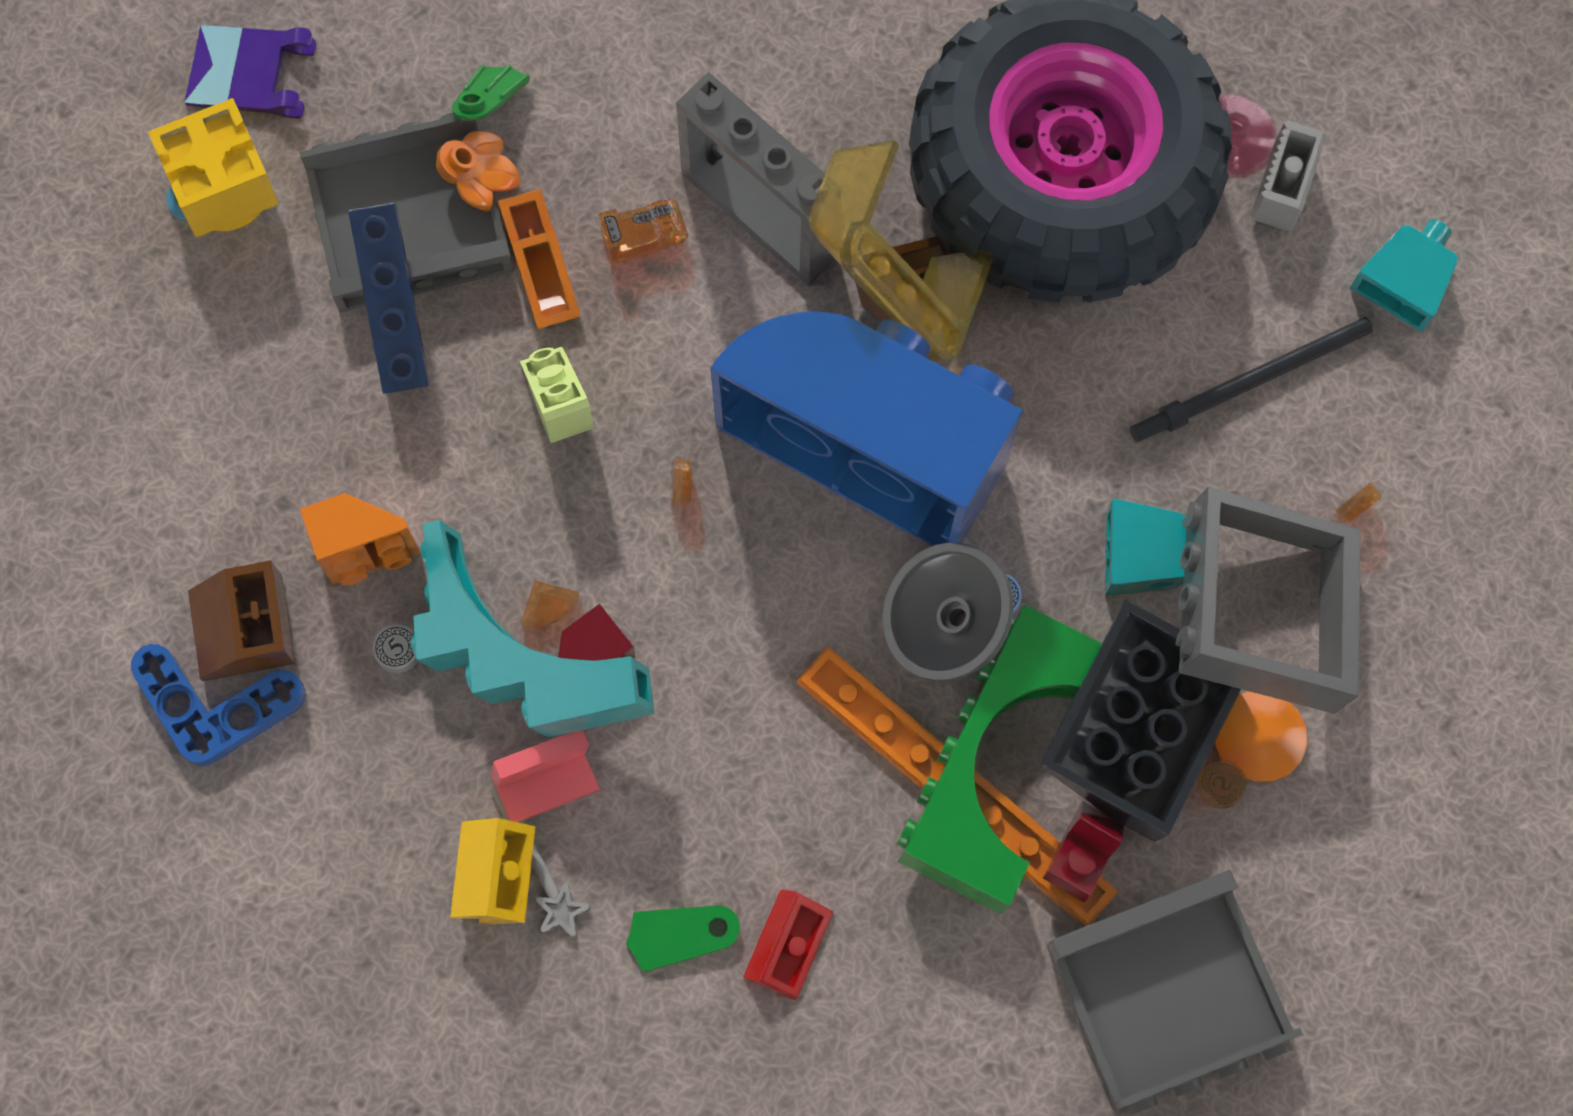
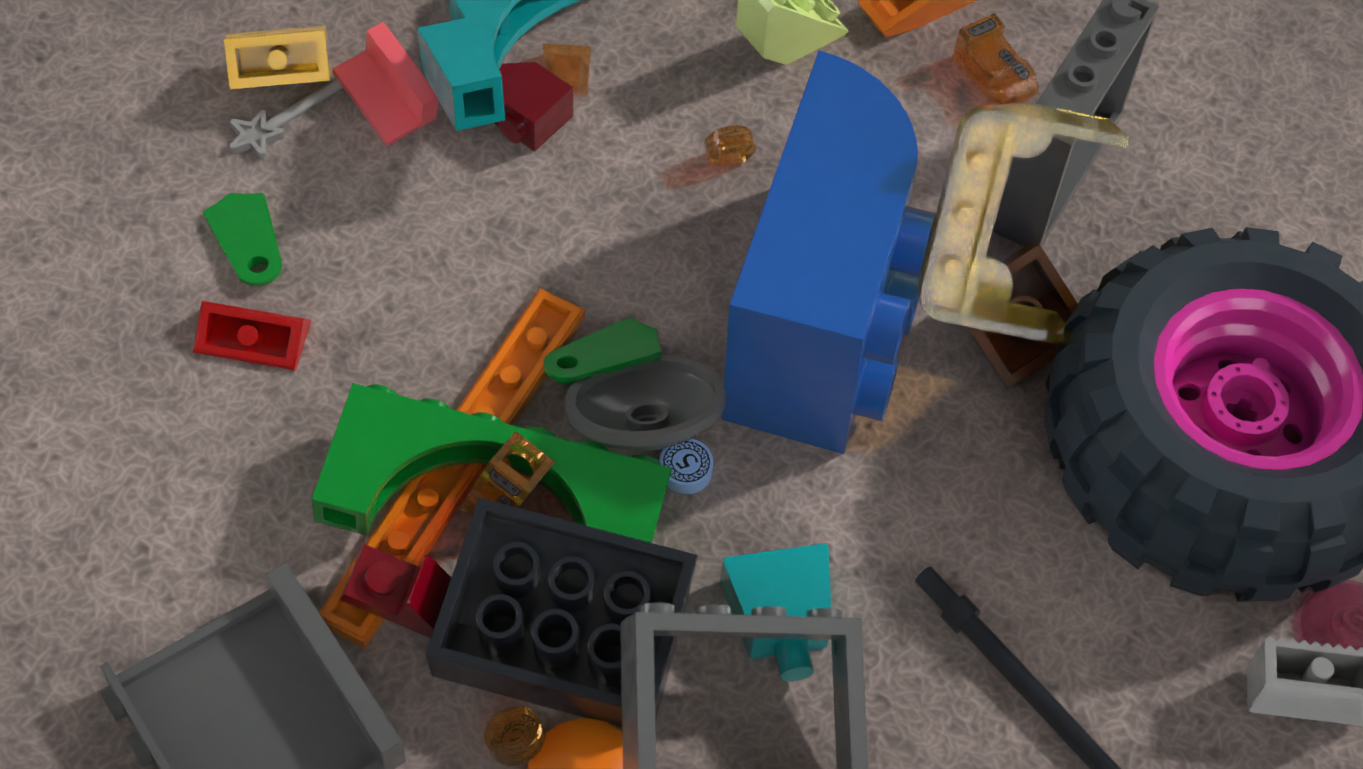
camera: 75 degrees right, 15 degrees down
(875, 637) = (603, 351): none -> green piece
(1011, 749) = (501, 482): none -> clear orange leg

